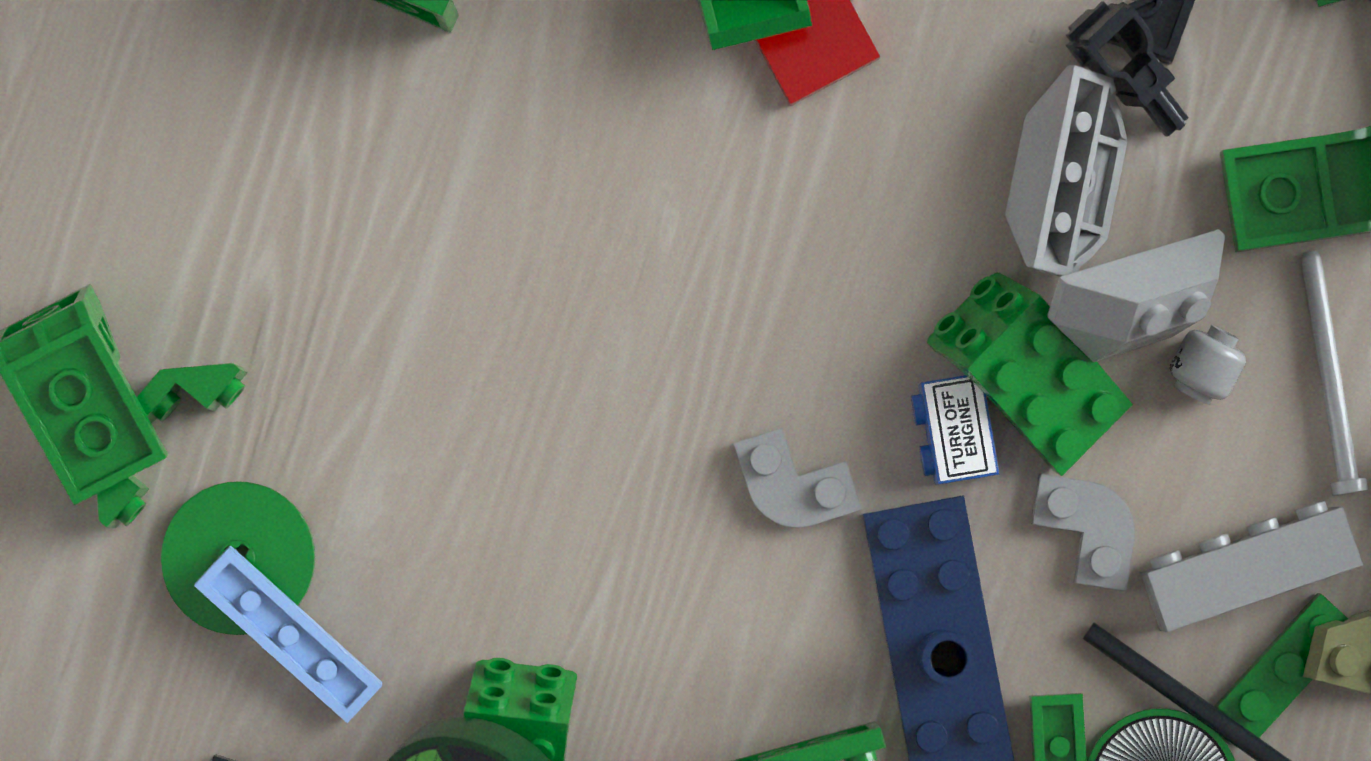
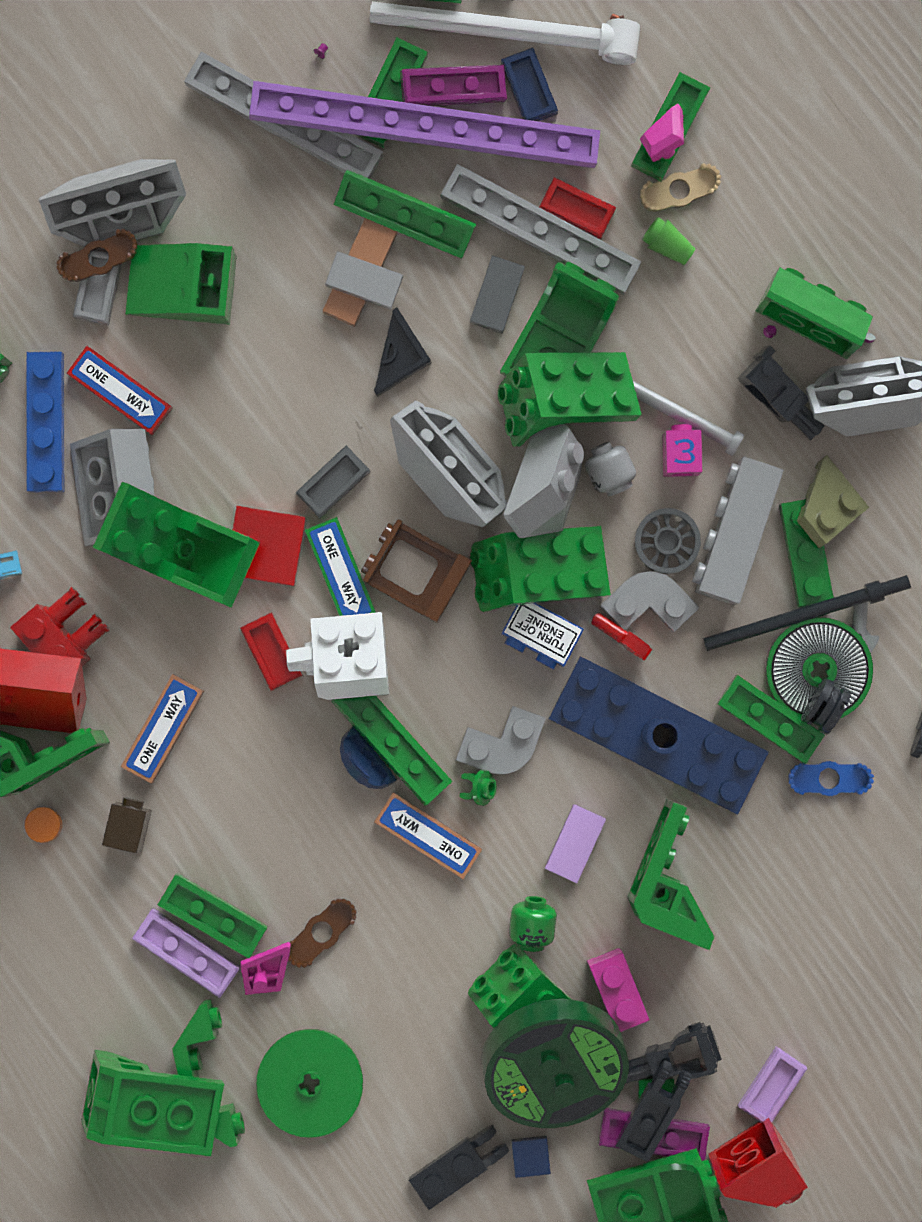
camera: 60 degrees left, 0 degrees up
(278, 303) = (186, 952): none -> lavender tile
(288, 634) = (373, 1088): light blue plate -> none
(300, 29) = (43, 824): none -> orange tile
(327, 409) = (265, 970): none -> dark pink piece
(344, 301) = (212, 915): none -> green plate
(372, 125) = (127, 825): none -> dark brown brick
(387, 433) = (305, 948): none -> reddish brown piece
(512, 80) = (162, 728): none -> tile
(613, 675) = (532, 924): none -> green head
(622, 477) = (428, 835): none -> tile
(650, 339) = (364, 762): none -> dark blue plate
(695, 136) = (269, 650): none -> red tile
(699, 352) = (395, 746): none -> green plate
(726, 498) = (483, 787): none -> green plate
(743, 654) = (575, 843): none -> lavender tile
(755, 223) = (328, 660): none -> white hinge
(847, 146) = (339, 568): none -> tile
(922, 273) = (442, 584): none -> reddish brown window
(944, 57) = (333, 481): none -> dark grey tile
(1025, 535) = (627, 639): none -> red bar
(1144, 77) = (428, 385): black piece -> none
(1175, 495) = (667, 541): none -> dark grey wheel
(1261, 241) = (566, 389): none -> green bracket
(1292, 432) = (682, 451): none -> dark pink brick
(1308, 79) = (497, 294): none -> dark grey tile

